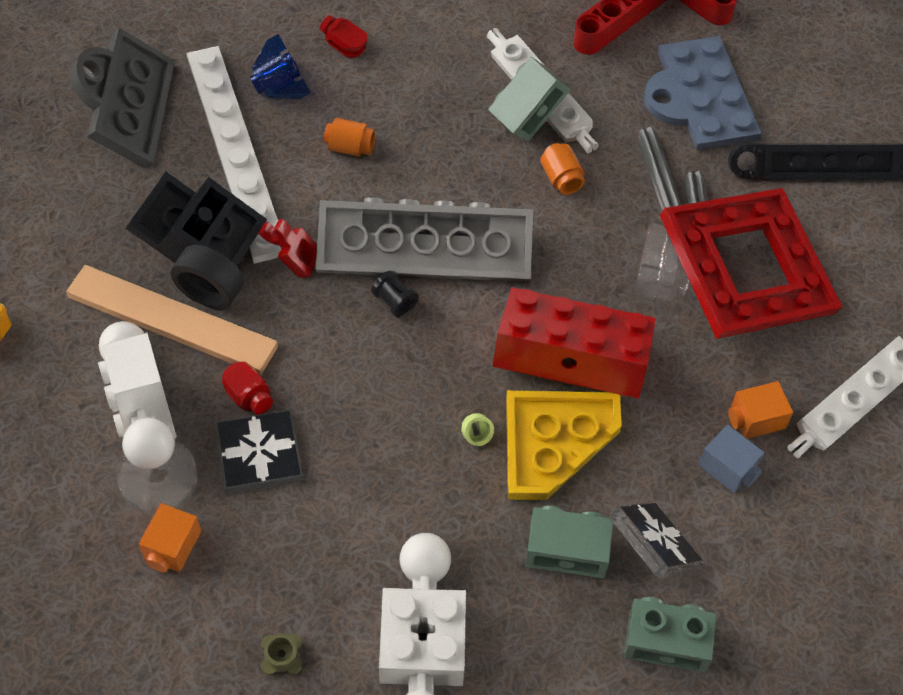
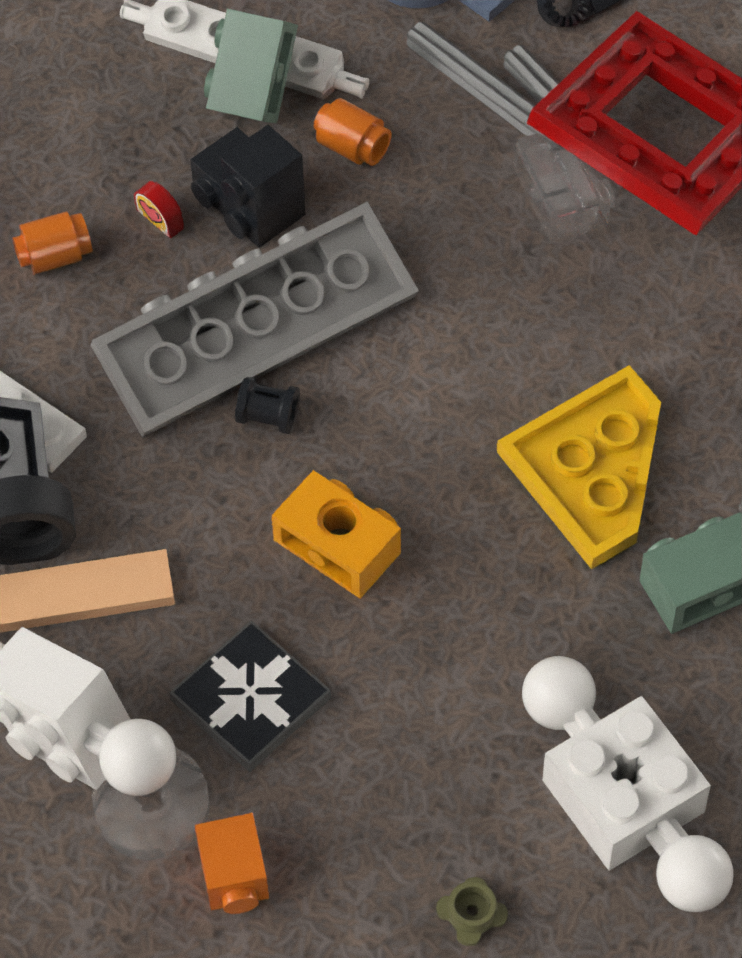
camera: 30 degrees left, 0 degrees up
(247, 388) = (176, 628): red arm -> none
(297, 247) = (100, 417): red plate -> none
(373, 369) = (350, 559): none -> light orange brick
(422, 152) = (159, 208): none -> red tile
(480, 165) = (251, 182): none -> black brick
(484, 426) = (499, 499): yellowish green hinge -> none
(604, 341) = (496, 342): red brick -> none

